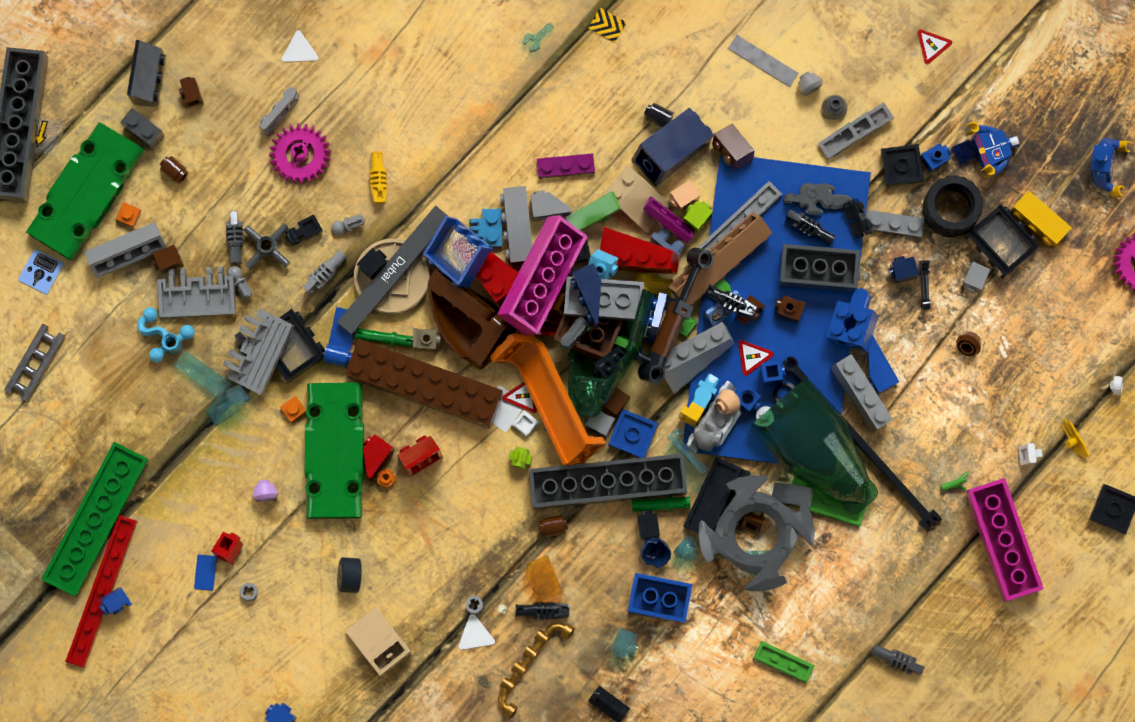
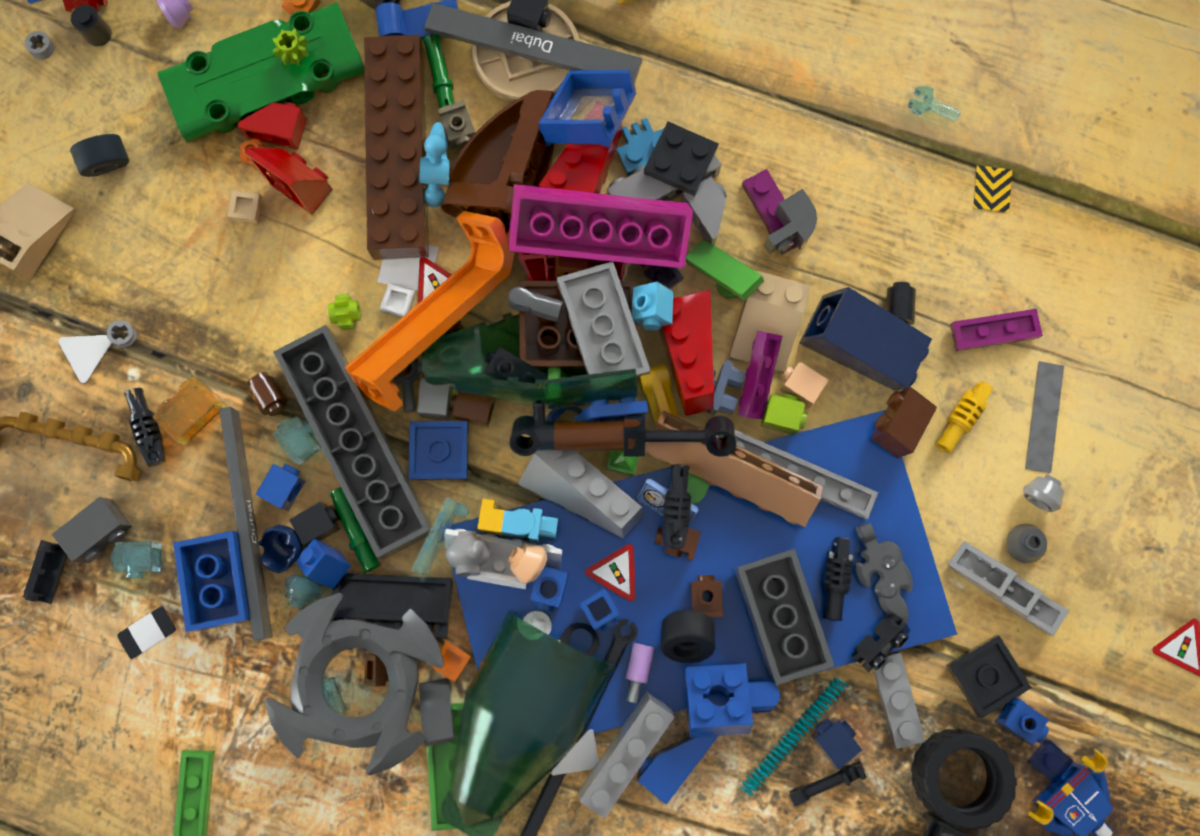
camera: 65 degrees right, 0 degrees up
(253, 550) = (91, 25): none -> black brick
(330, 419) = (290, 47): none -> lime gear
(422, 496) = (245, 207): none -> tan plate
(452, 360) = (435, 166): none -> medium azure piece
(512, 208) = (681, 158): none -> black plate
(585, 154) = (799, 222): none -> dark grey brick
(589, 287) = (604, 298): dark blue slope -> none
(590, 517) = (297, 439): none -> clear light blue brick
(596, 665) = (92, 530): none -> dark grey brick
(616, 538) = (281, 486): none -> blue brick
(626, 568) = (245, 524): none -> dark grey tile
(671, 657) = (146, 632): none -> sticker
(676, 528) = (323, 563): none -> blue brick
(698, 65) = (996, 329): none -> magenta plate
(743, 108) = (964, 416): none -> yellow hinge
(766, 470) = (455, 661): none -> orange plate
(808, 328) = (687, 636): none -> black tyre
(815, 365) = (638, 669): none -> lavender piece
(852, 419) = (580, 757): none -> white sticker
(888, 293) = (791, 735): none -> teal piece

